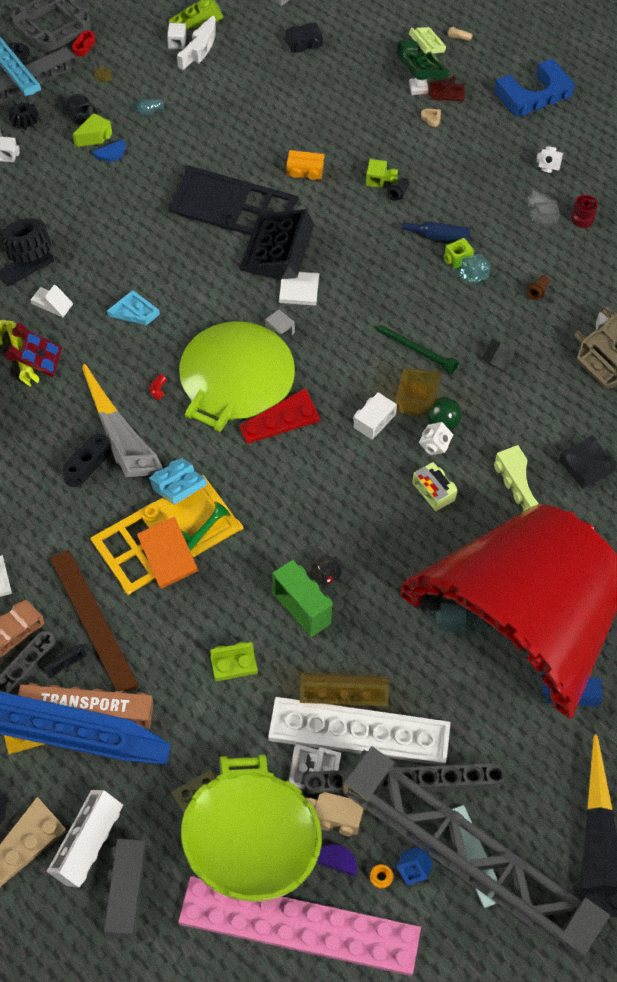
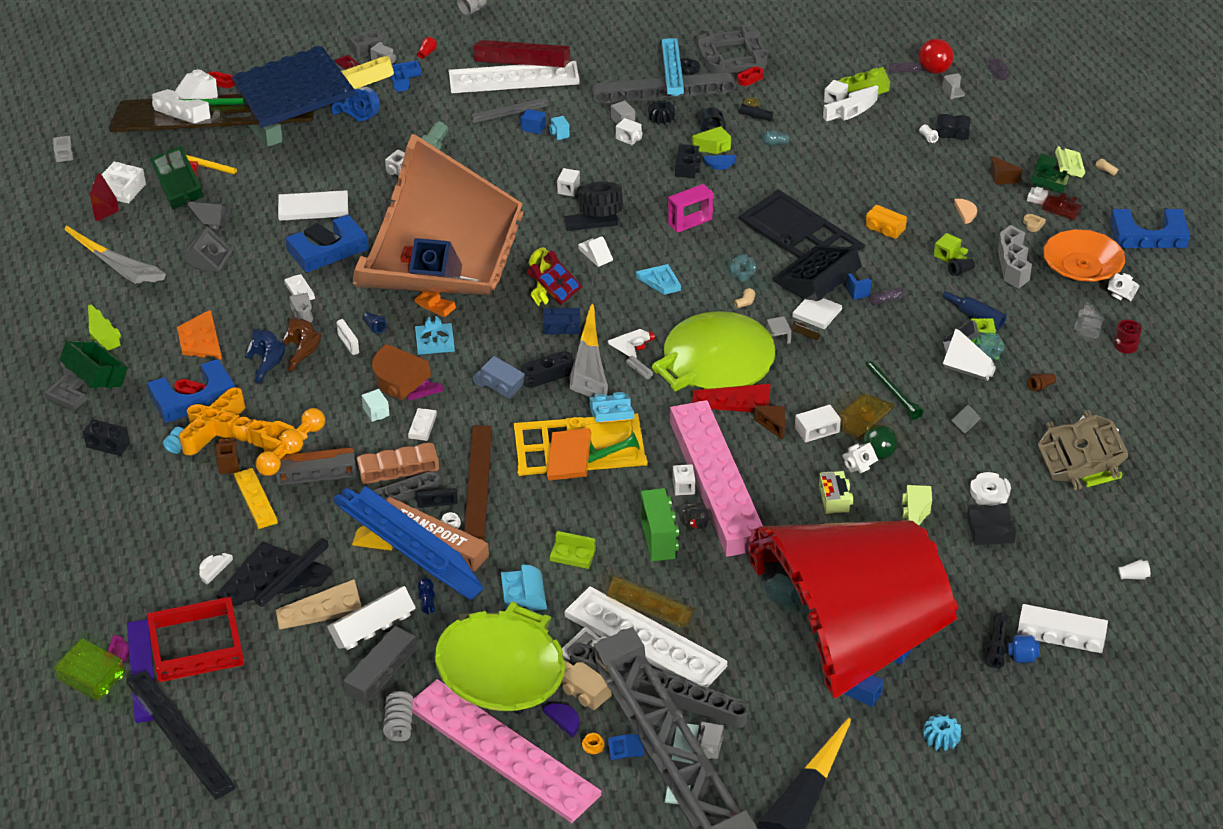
camera: 30 degrees right, 15 degrees down
(44, 490) = (500, 377): none -> sand blue hinge
(67, 397) = (561, 321): none -> dark blue brick
(82, 163) = (688, 161): none -> black brick
(94, 676) = (452, 519): none -> white plate
(113, 83) = (756, 112): none -> black pin
(115, 772) = (426, 595): none -> clear blue pin
(119, 218) = (685, 198): none -> dark pink window
(147, 401) = (627, 341): none -> white slope
(171, 419) = (639, 367): none -> light grey piece
(178, 943) = (398, 716): none -> light grey piece
(212, 268) = (747, 262): none -> clear light blue brick
(213, 730) = (524, 588): none -> medium azure brick
(228, 298) = (747, 299): none -> tan arm
(289, 53) = (931, 135): none -> white pin
(291, 532) = (683, 479): none -> white brick
(300, 317) = (800, 328): none -> dark brown tile
(321, 517) = (715, 475): none -> bright pink brick
(322, 249) = (859, 288): none -> blue panel
(332, 428) = (771, 418): none -> reddish brown slope
(352, 246) = (887, 296): none -> clear purple axle
(366, 124) = (966, 210): none -> light nougat tile
(377, 71) = (1005, 172): none -> reddish brown slope
(439, 163) = (1013, 257): none -> light grey brick
(446, 268) = (970, 330): none -> tile
(467, 289) = (968, 358): none -> white slope
(487, 818) = (711, 739): none -> light grey brick
(501, 139) = (1084, 255): none -> orange dish
(563, 432) = (999, 493): none -> white plate

